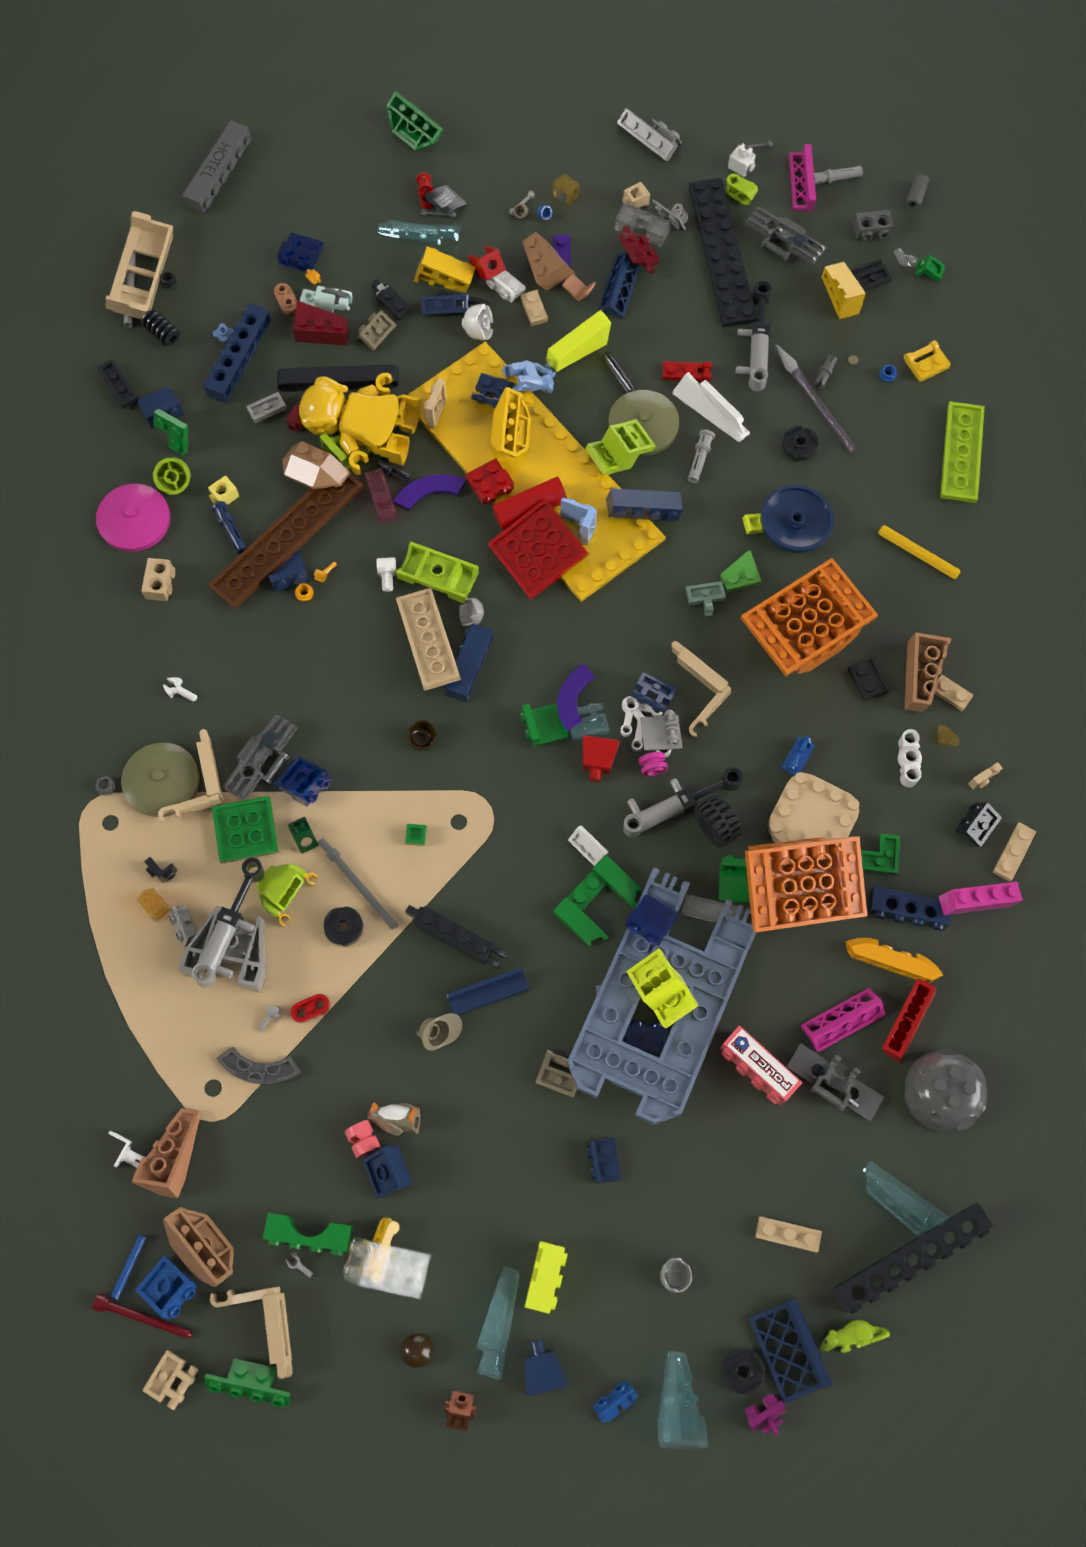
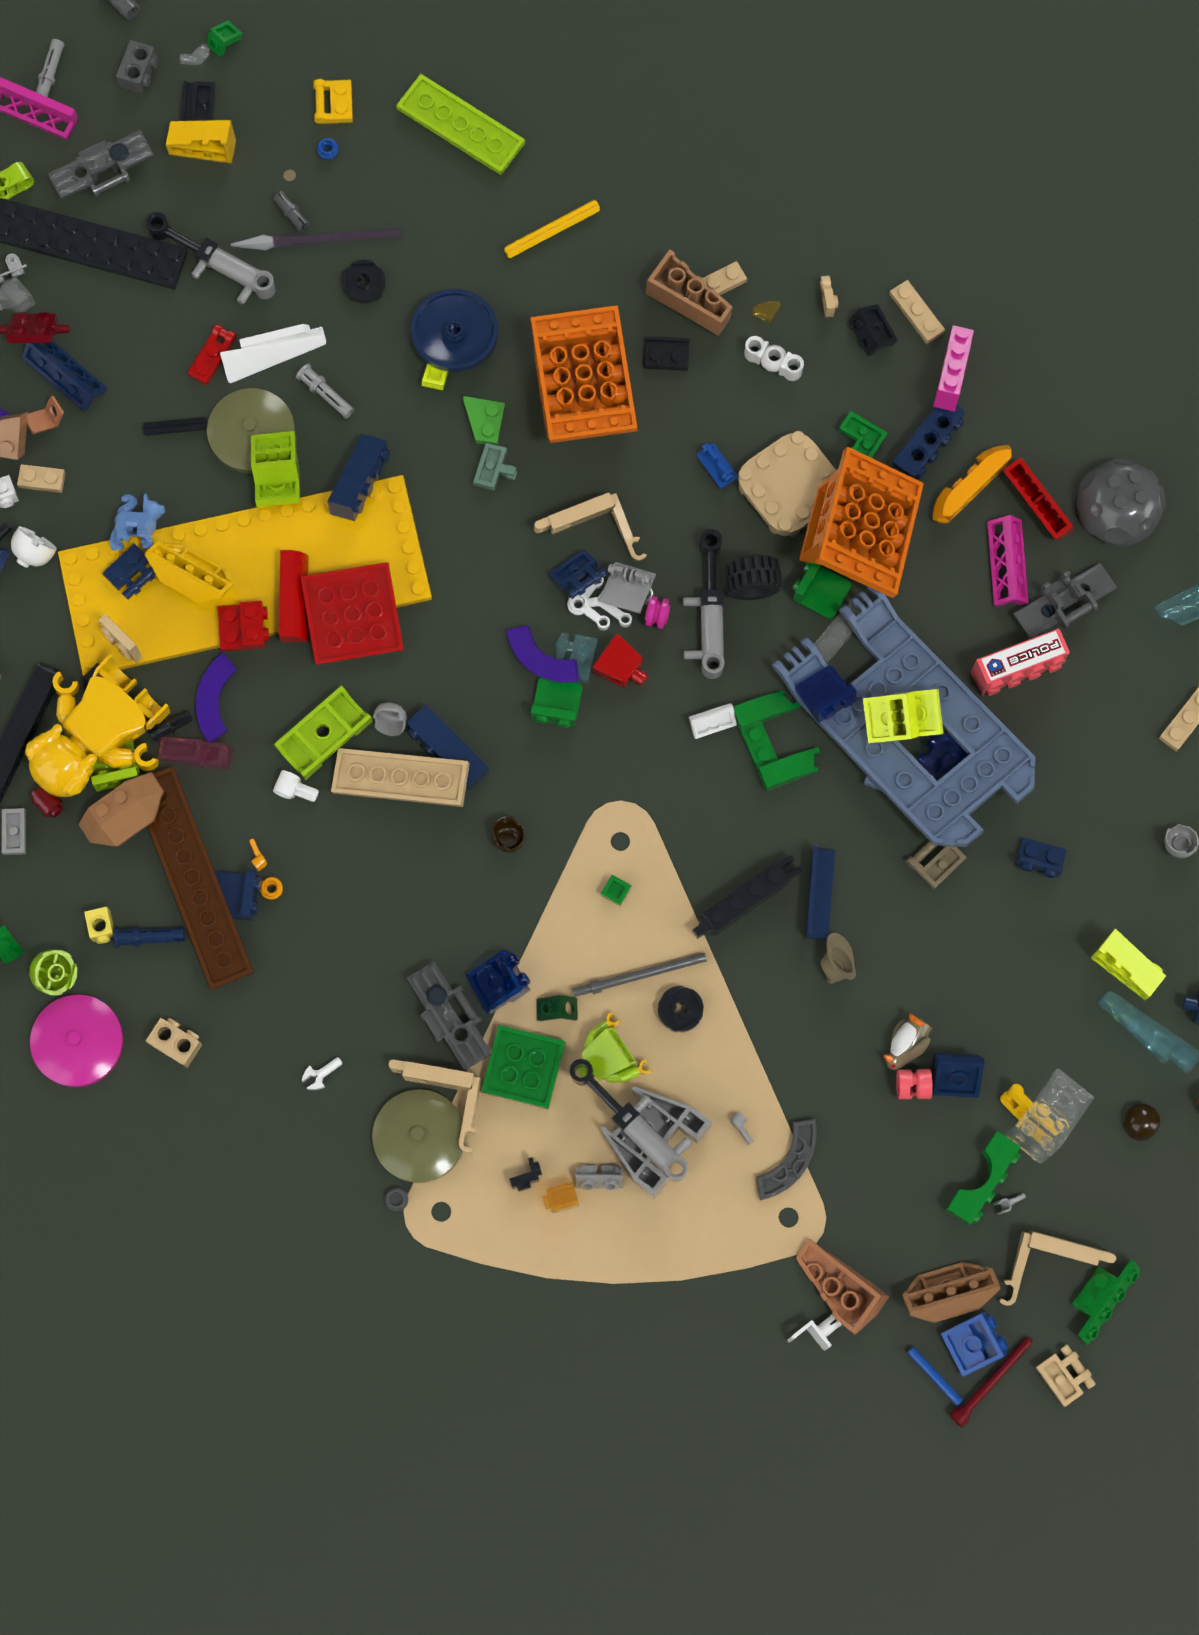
camera: 65 degrees left, 5 degrees up
(309, 1005) = (753, 1081): red plate -> none
(580, 342) = (120, 449): neon yellow slope -> none
(580, 514) = (344, 542): light blue bracket -> none

